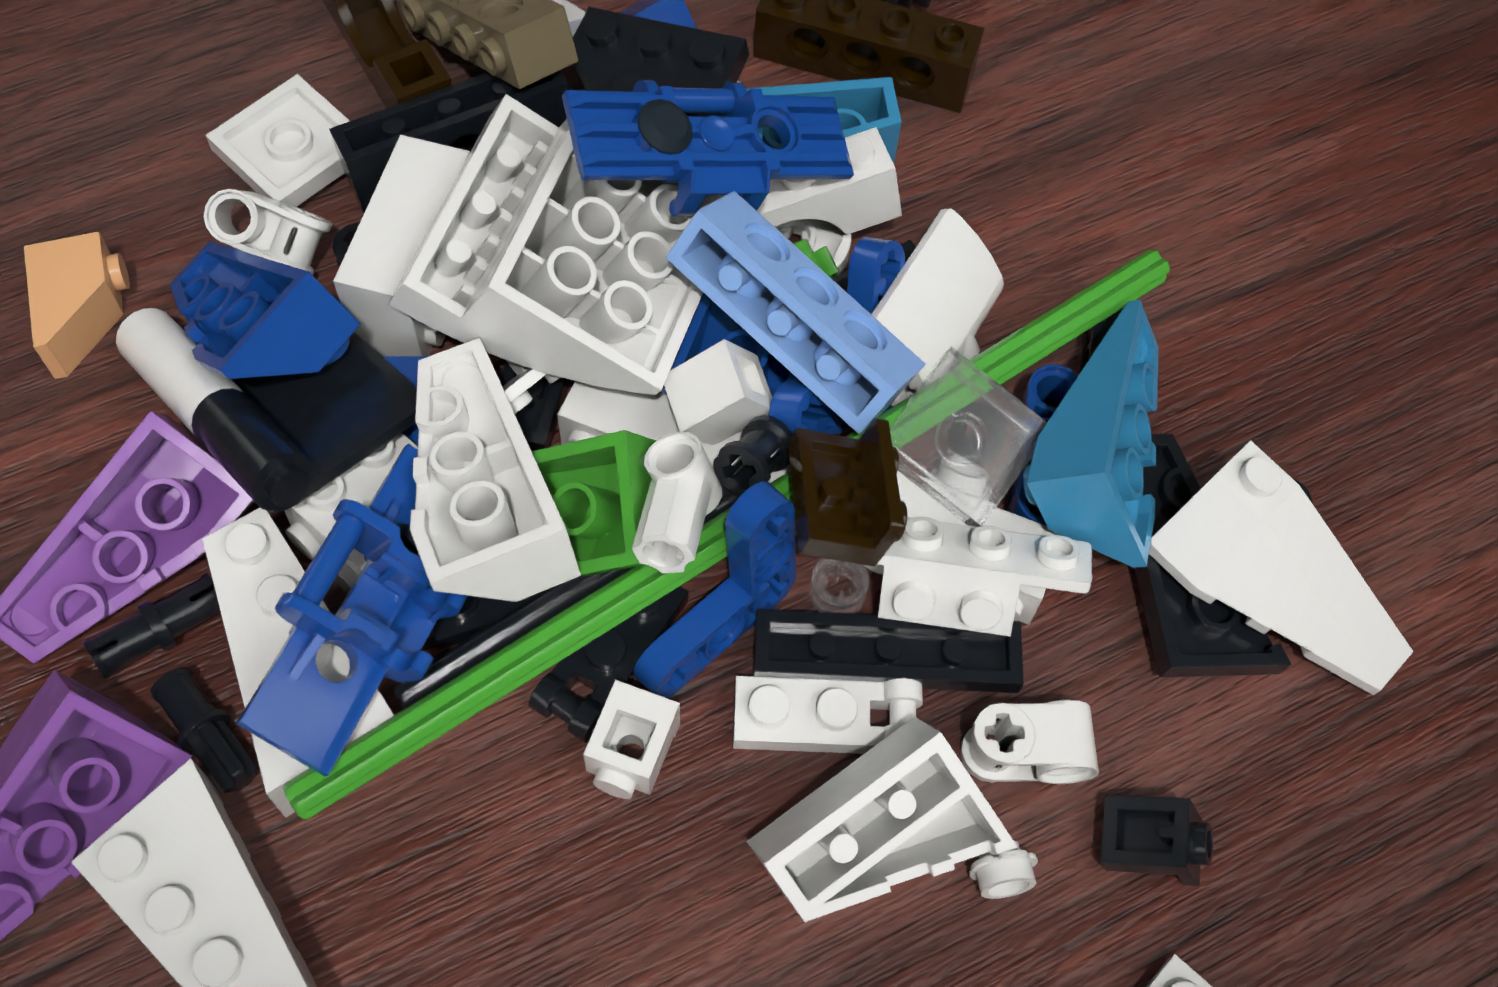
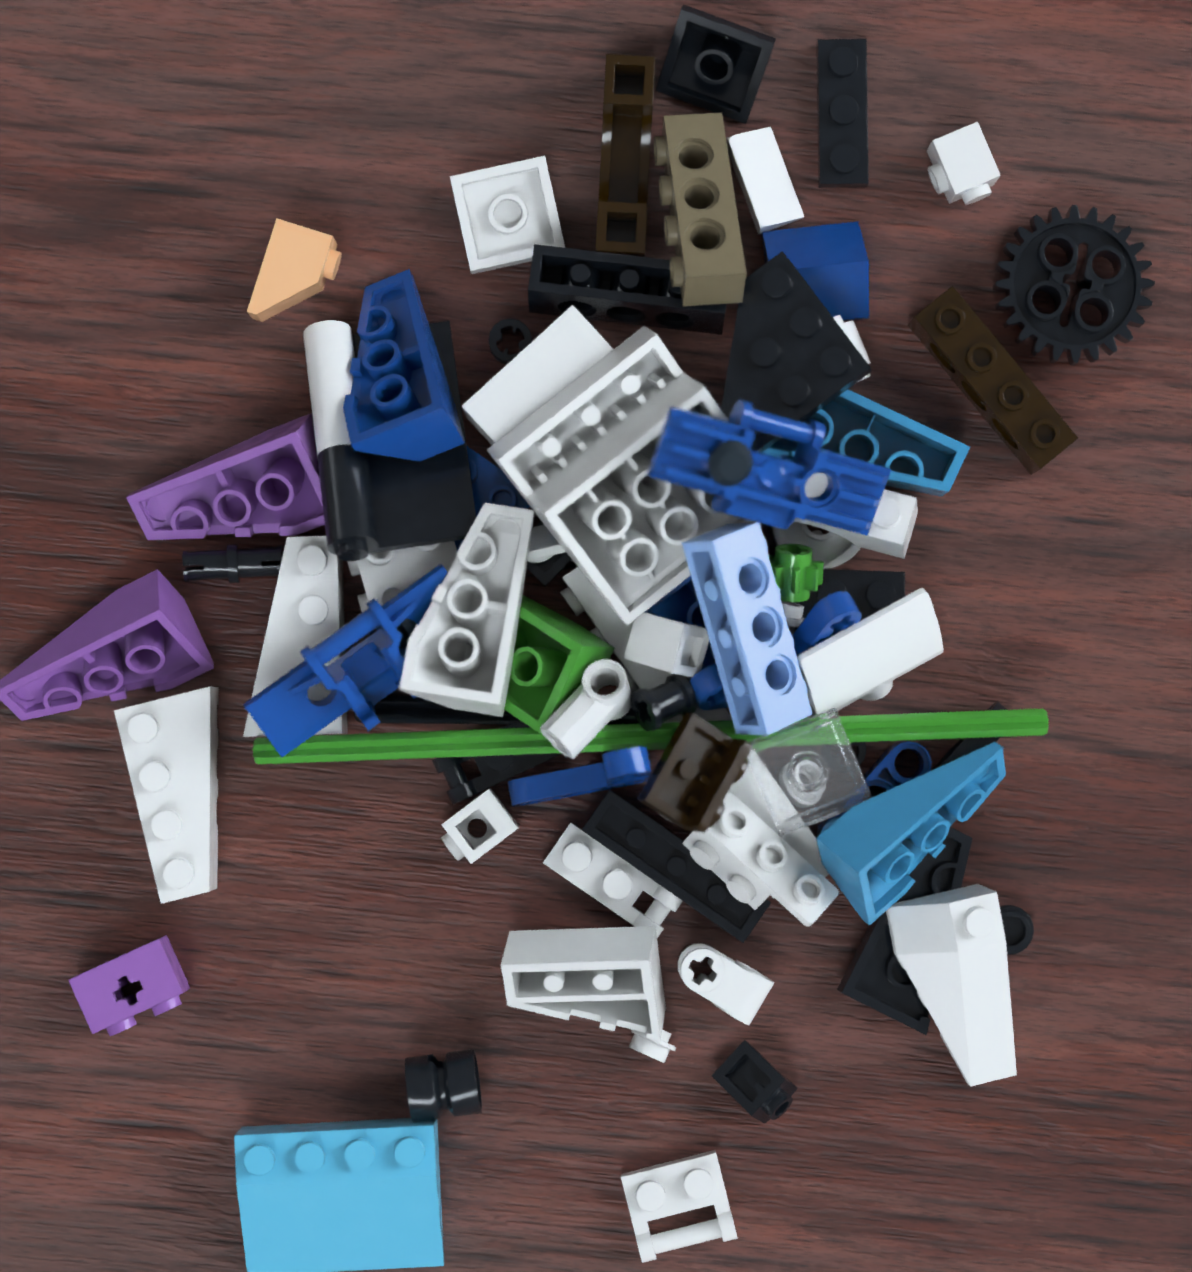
camera: 35 degrees right, 25 degrees up
(204, 730) = (229, 655): black axle -> none
(275, 228) = (453, 297): white piece -> none

